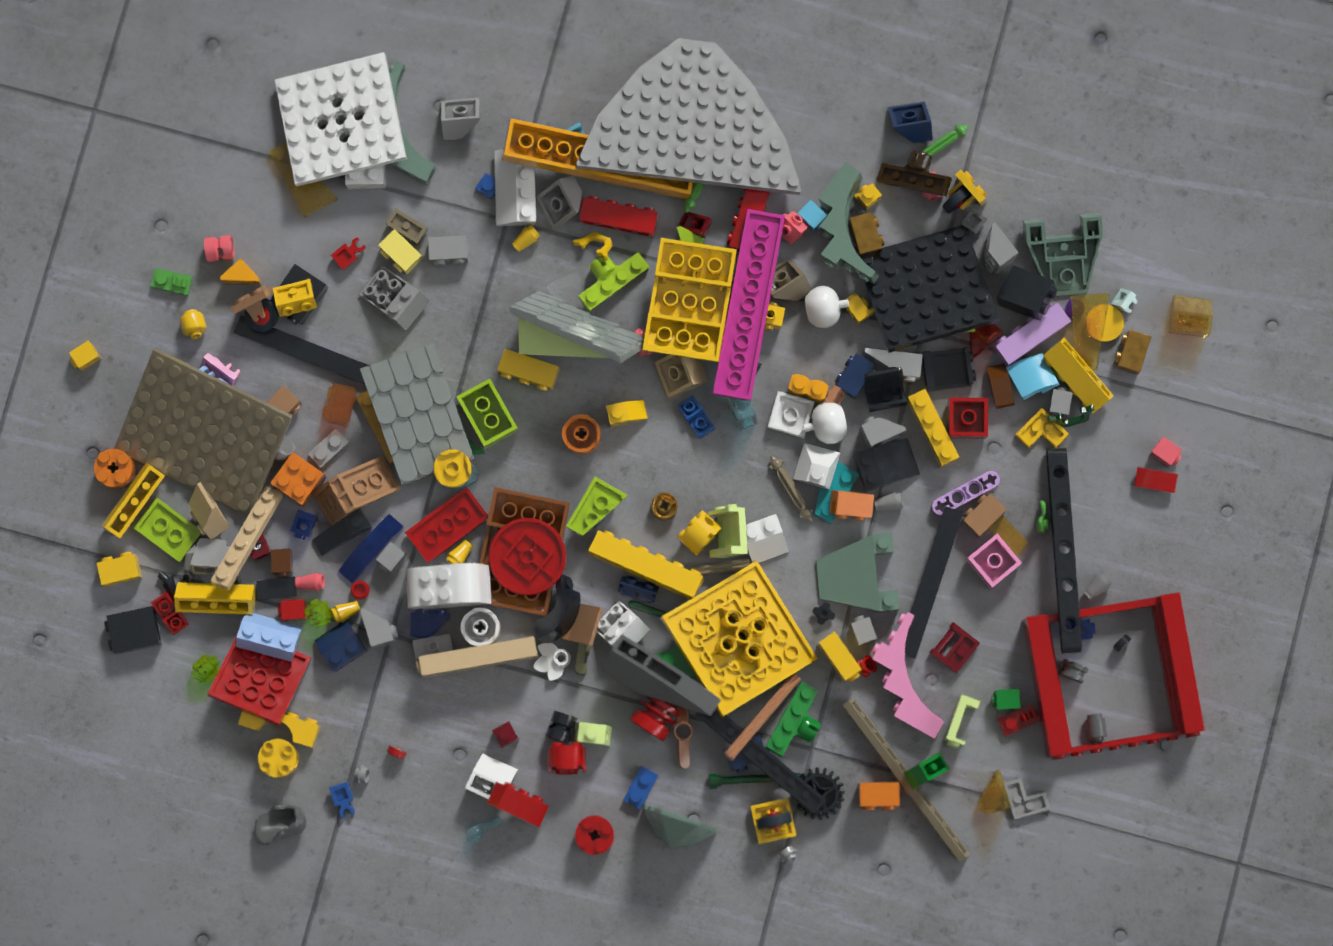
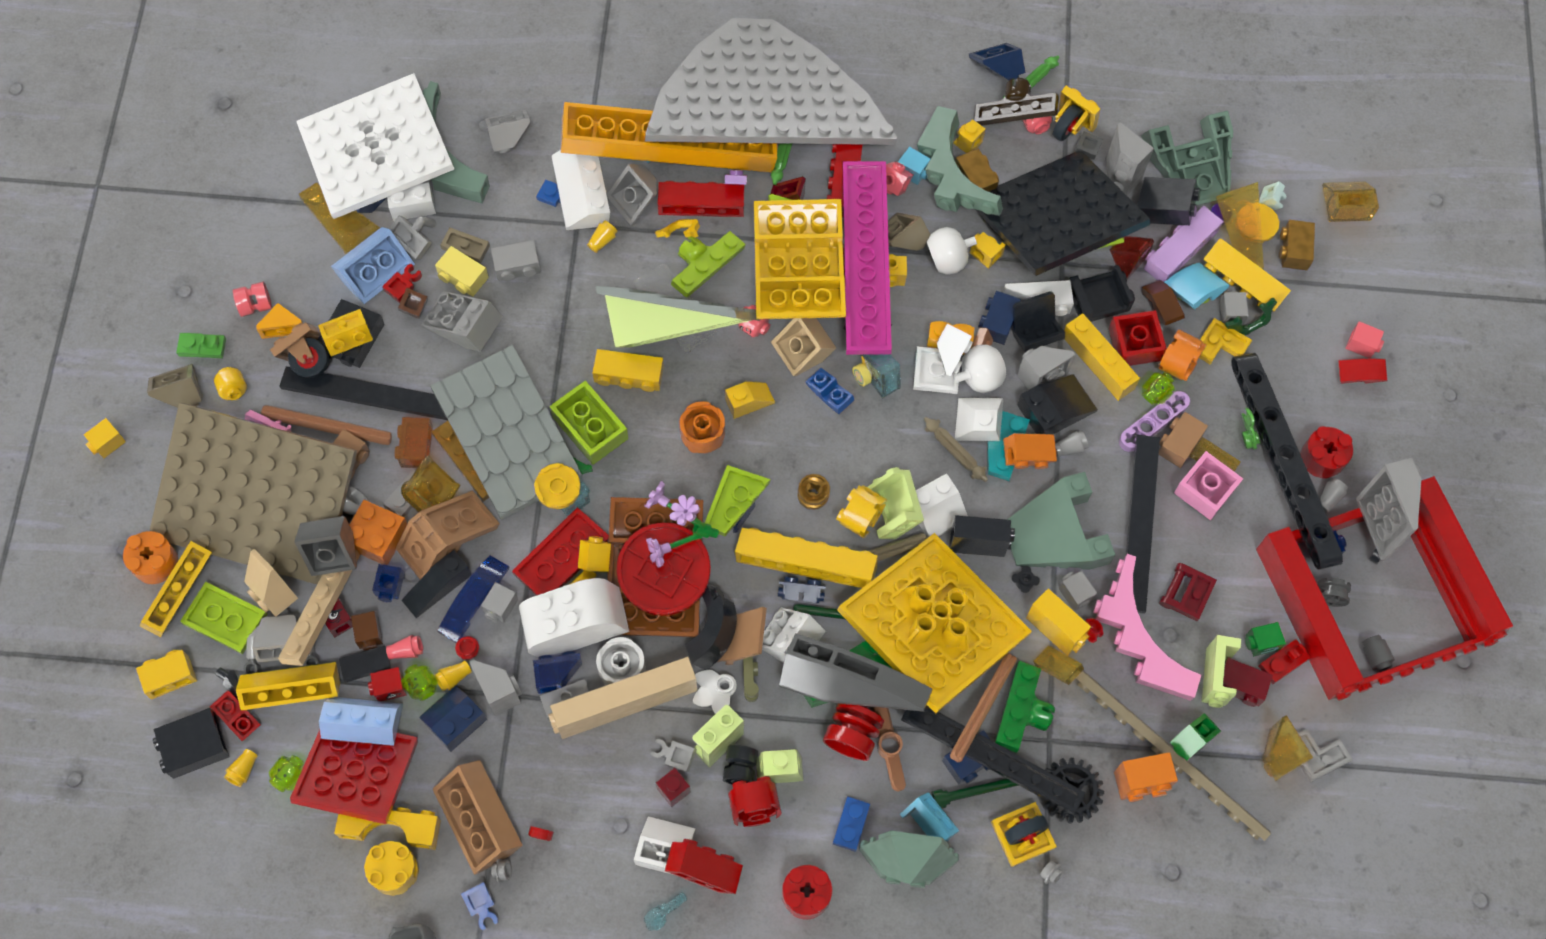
camera: 15 degrees left, 15 degrees down
(147, 319) = (176, 387): none -> dark tan slope
(170, 658) = (241, 768): none -> yellow cone
(258, 490) = (326, 546): none -> dark grey slope
(269, 374) = (326, 425): none -> nougat axle
(325, 231) = (372, 264): none -> light blue slope
(347, 449) = (428, 486): none -> clear yellow slope
(349, 729) = (476, 816): none -> medium nougat slope
(354, 277) = (413, 303): none -> reddish brown brick
(360, 209) = (410, 236): none -> light grey plate
(473, 533) = (594, 554): none -> yellow brick
(513, 709) = (677, 755): none -> light grey plate
(547, 701) = (717, 734): none -> yellowish green panel
(549, 523) = (684, 511): none -> lavender plant
(651, 205) = (736, 177): none -> plate
(703, 797) = (931, 817): none -> medium azure panel
(726, 408) = (862, 374): none -> light yellow tile
(793, 572) = (981, 536): none -> black brick
(803, 402) = (951, 347): none -> white slope
(832, 691) = (1058, 665): none -> clear yellow tile
(975, 465) = (1158, 388): none -> clear neon green head
(979, 732) = (1250, 682): none -> dark red brick
(1001, 441) = (1182, 355): none -> orange brick
(1113, 544) = (1327, 452): none -> red brick
(1130, 612) = (1392, 505): none -> light grey slope

